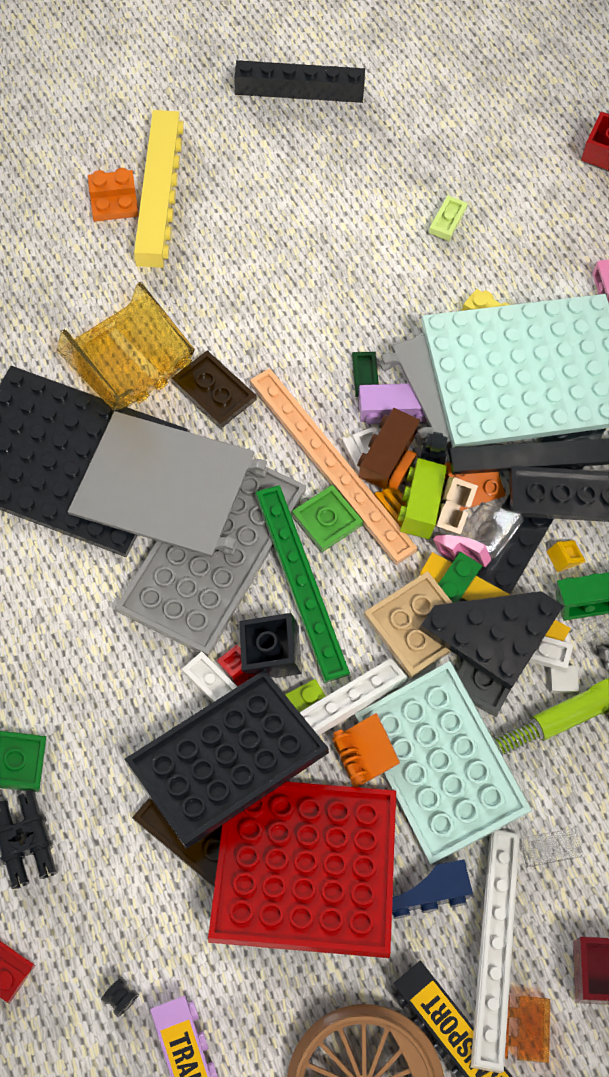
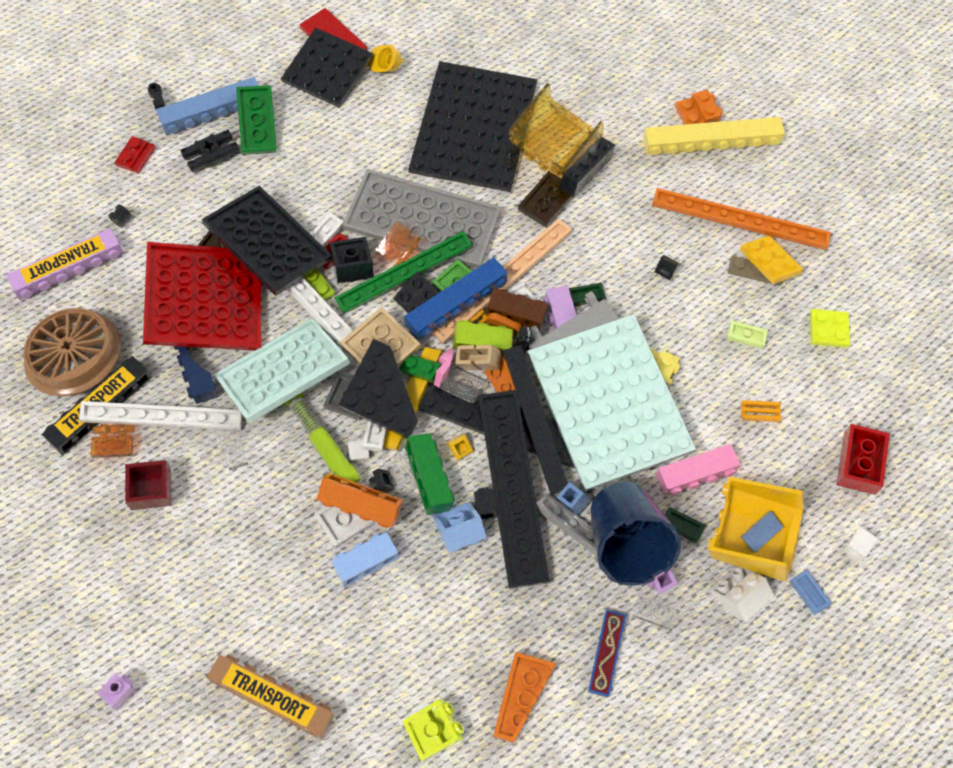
camera: 80 degrees right, 0 degrees up
(164, 484) = (461, 179): light grey flag -> none
(201, 338) = (587, 167): none -> black brick
(250, 585) = (394, 241): none -> clear orange plate
(284, 191) = (741, 219): none -> orange plate
(299, 81) = (848, 212): black brick -> none
(341, 571) = (415, 293): none -> black hinge
(344, 277) = (666, 267): none -> black tile
(354, 169) = (771, 259): none -> yellow plate
(359, 191) = (745, 268): none -> dark tan plate
(363, 519) = (456, 299): none -> blue brick
(365, 750) = (285, 325): orange hinge -> none
(448, 140) = (829, 328): none -> neon yellow plate
(549, 214) = (766, 405): none -> light orange tile

